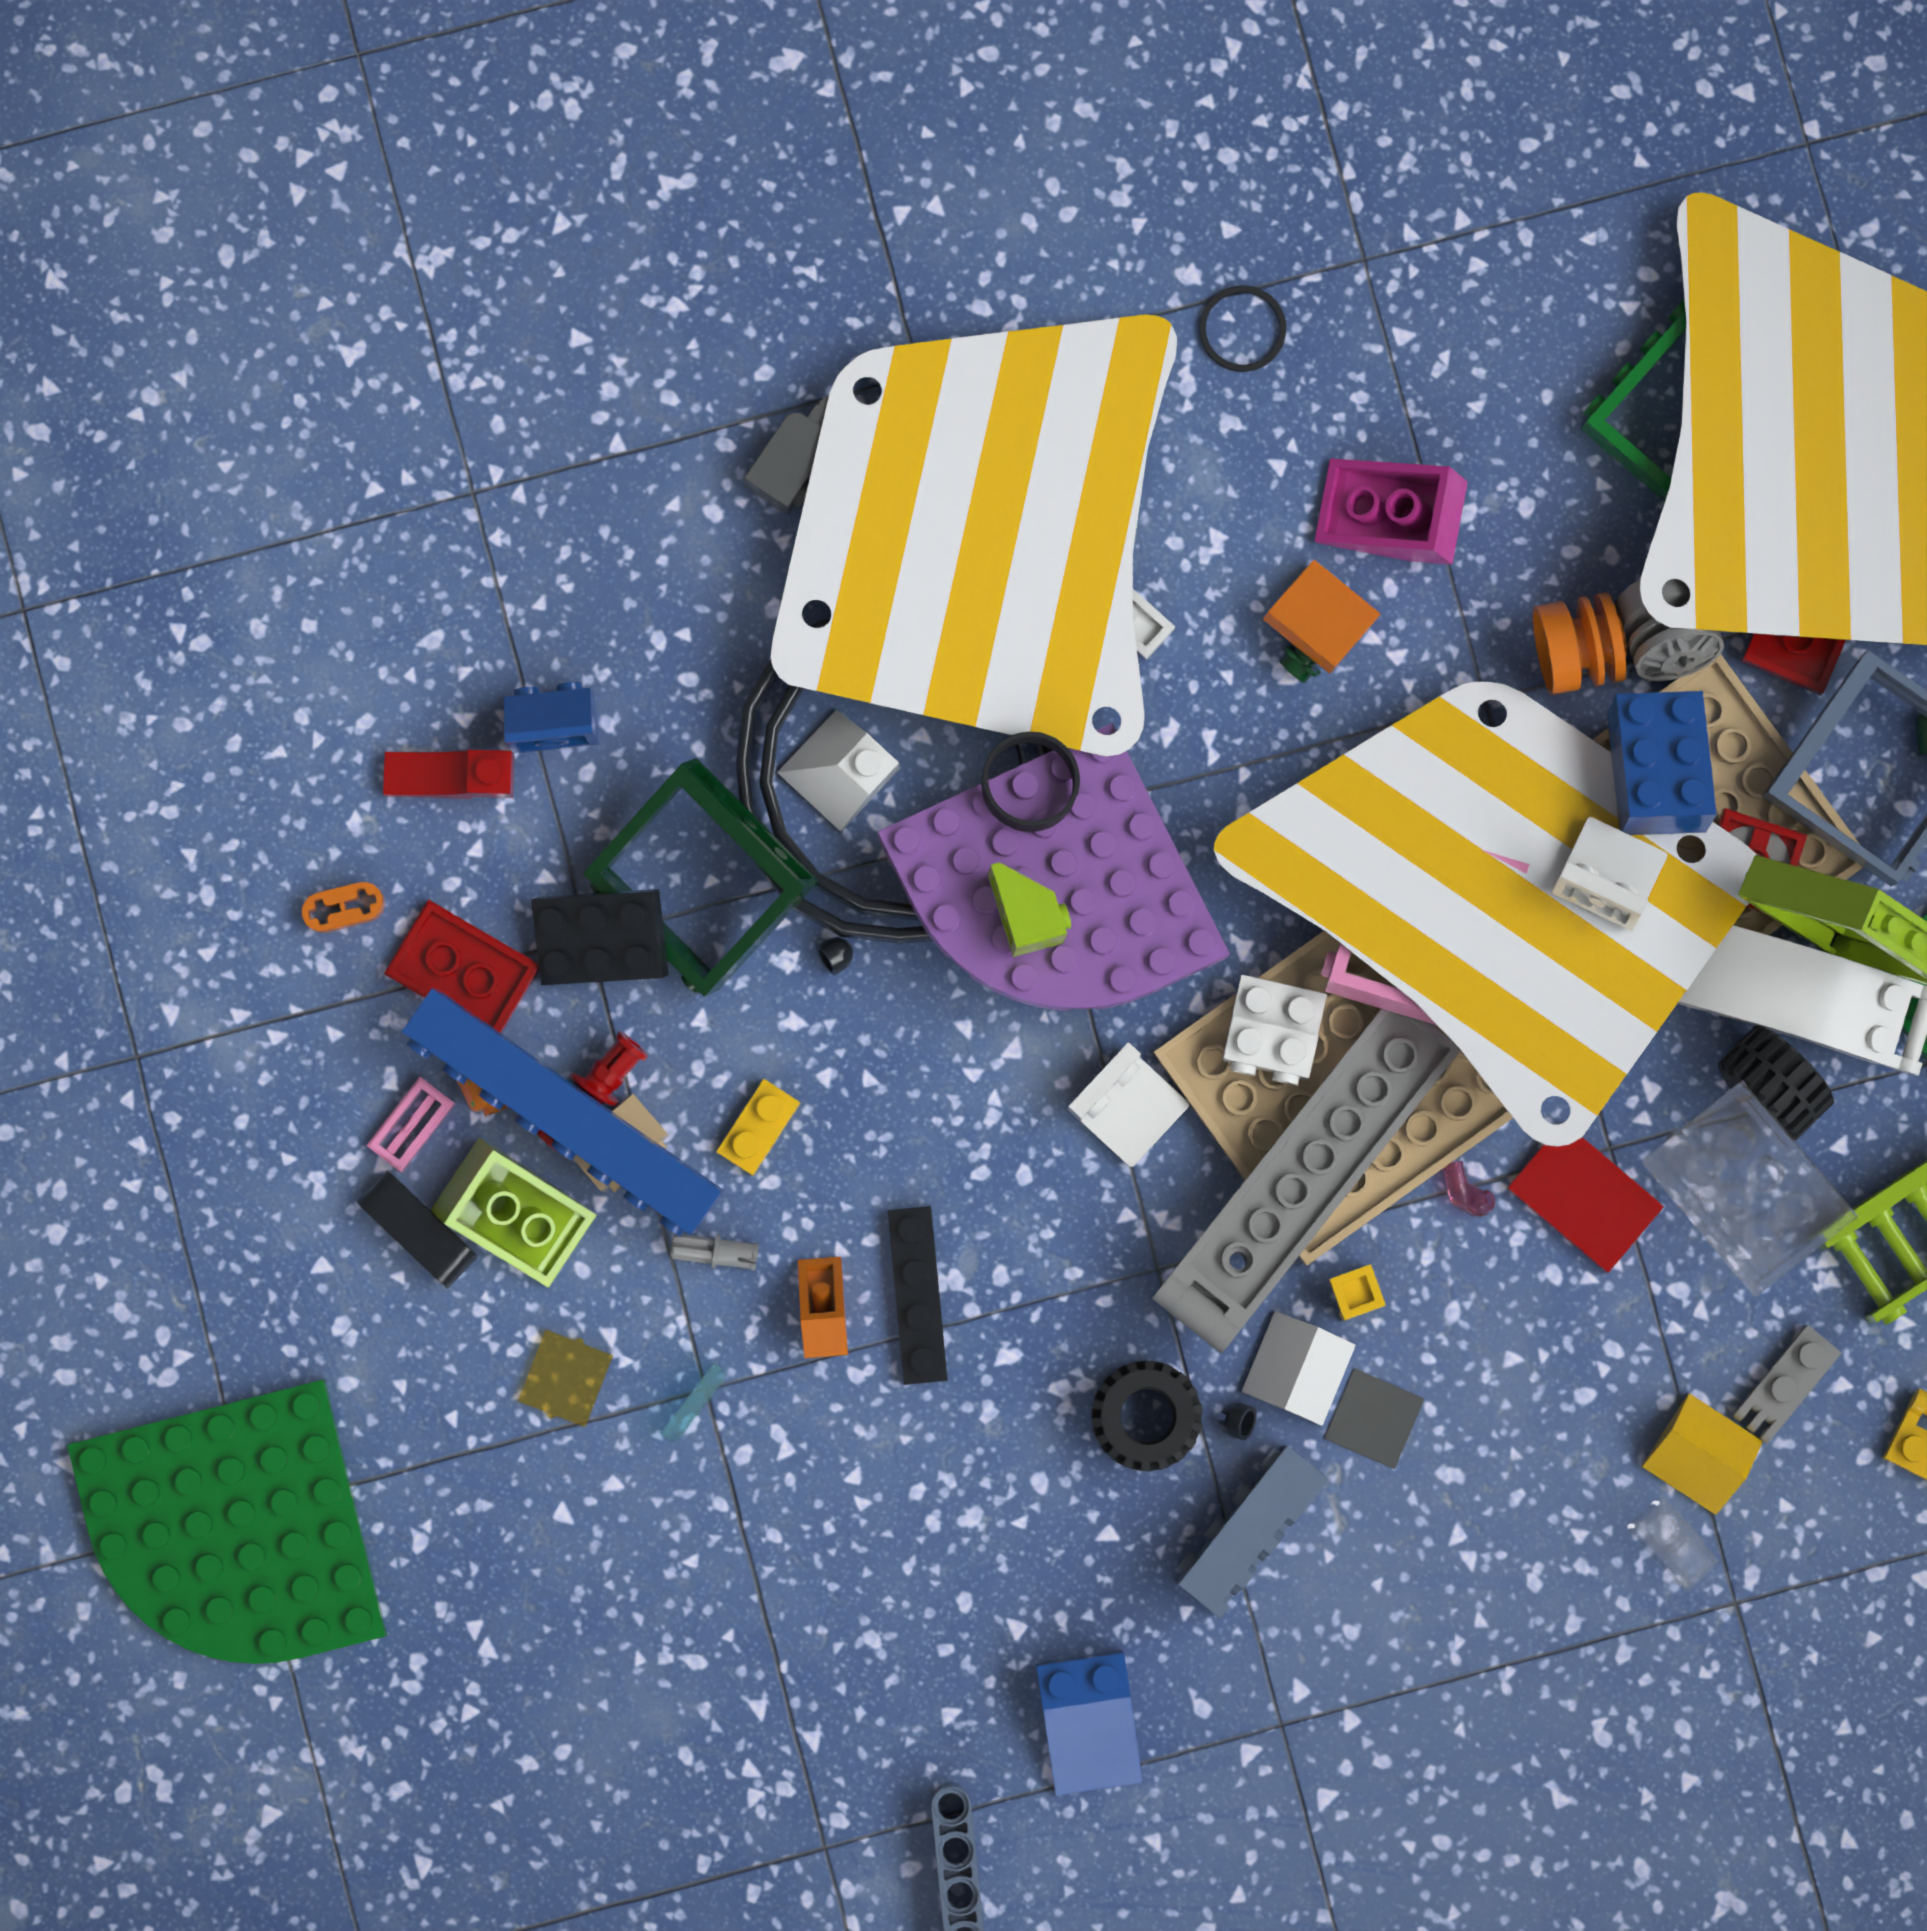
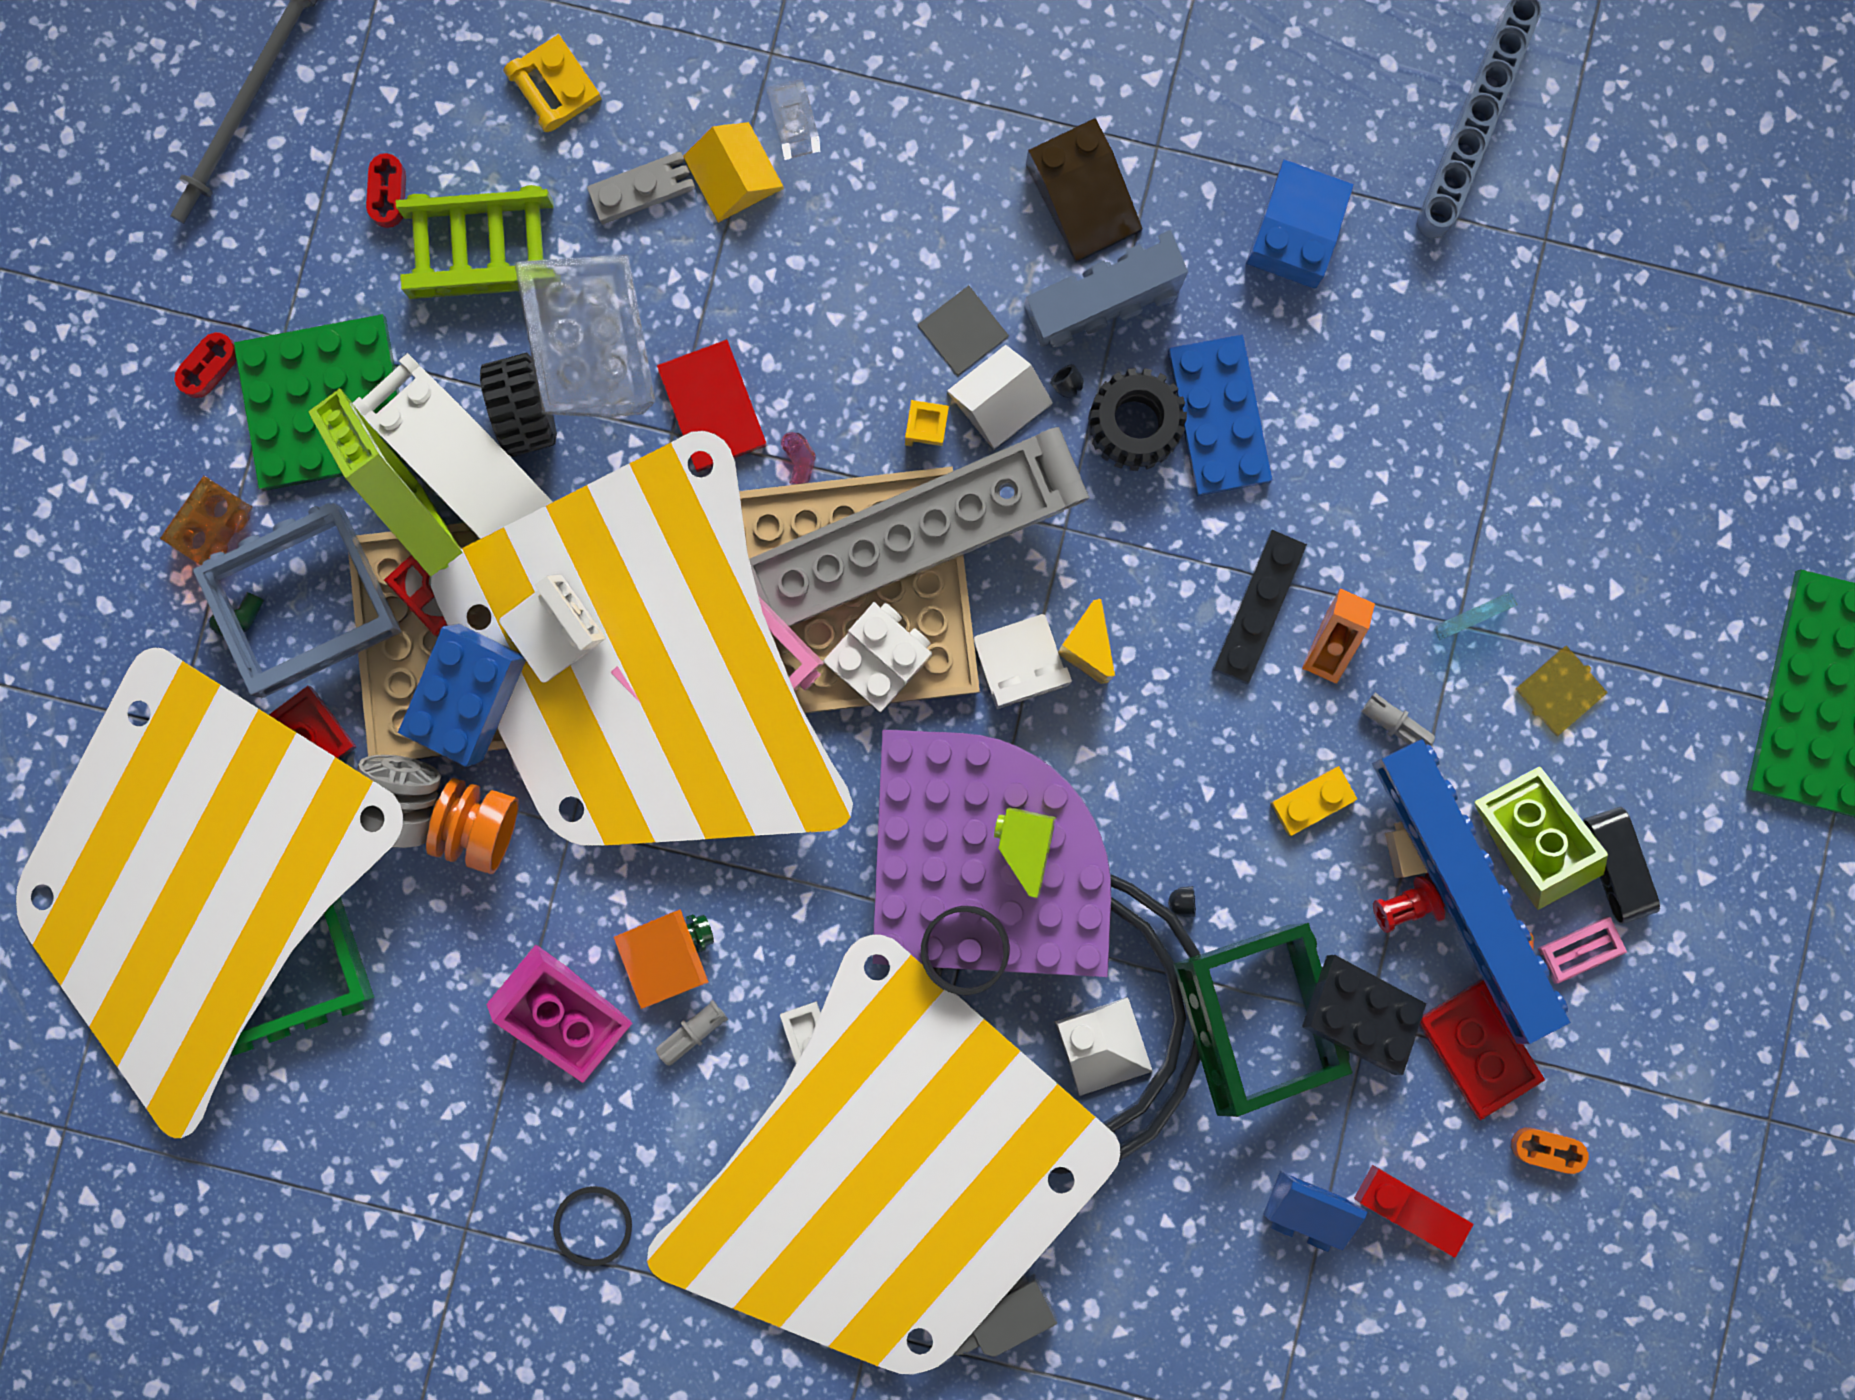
camera: 155 degrees left, 0 degrees up
(1064, 1472) = (1222, 415): none -> blue plate
(1071, 1154) = (1089, 645): none -> yellow slope
(1251, 562) = (691, 1033): none -> light grey axle
(1329, 1629) = (1084, 189): none -> dark brown slope

